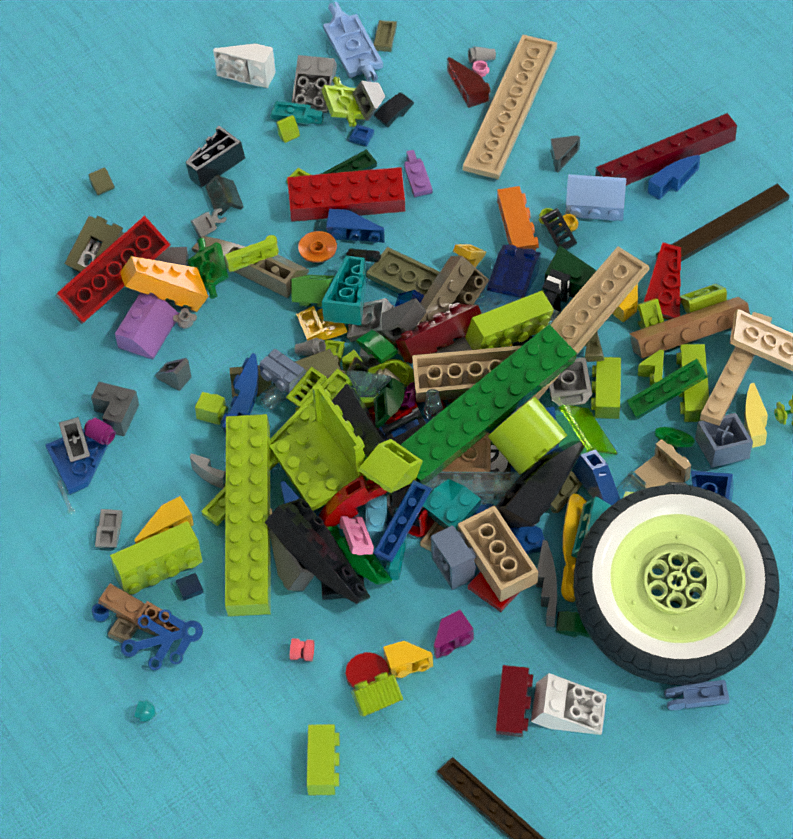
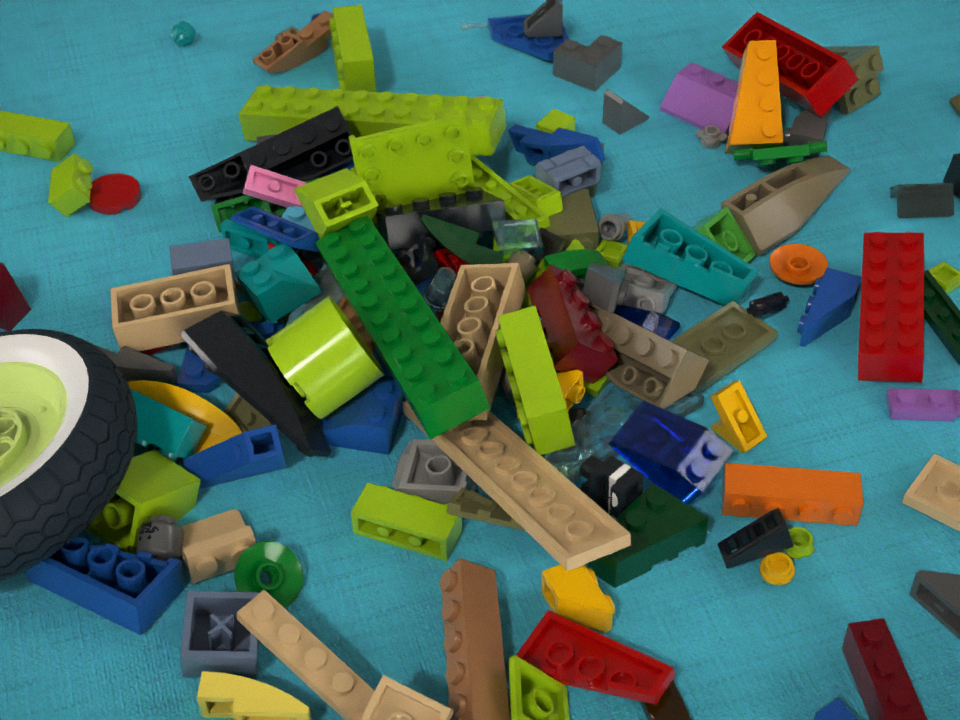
camera: 105 degrees right, 10 degrees down
(99, 431) = (550, 37): magenta brick -> none
(109, 528) = (420, 44): light grey slope -> none
(165, 638) = (264, 40): blue plant -> none
(167, 516) = (405, 72): yellow slope -> none
(189, 586) = (319, 82): dark blue tile -> none
(205, 222) = (871, 173): light grey plate -> none
(252, 253) = (778, 172): lime plate -> none
(302, 649) = (174, 145): coral wheel -> none
(406, 658) = (102, 220): yellow slope -> none
(452, 633) = (108, 264): magenta slope -> none
(588, 429) = (333, 470): clear neon green piece -> none
(596, 197) = (809, 608): light blue slope -> none
(631, 483) = (216, 504): clear light blue slope -> none
(650, 313) = (520, 612): lime slope -> none
(652, 367) = (410, 596): lime slope -> none
(667, 388) = (352, 582): green plate -> none
(697, 396) = (371, 640): lime brick -> none

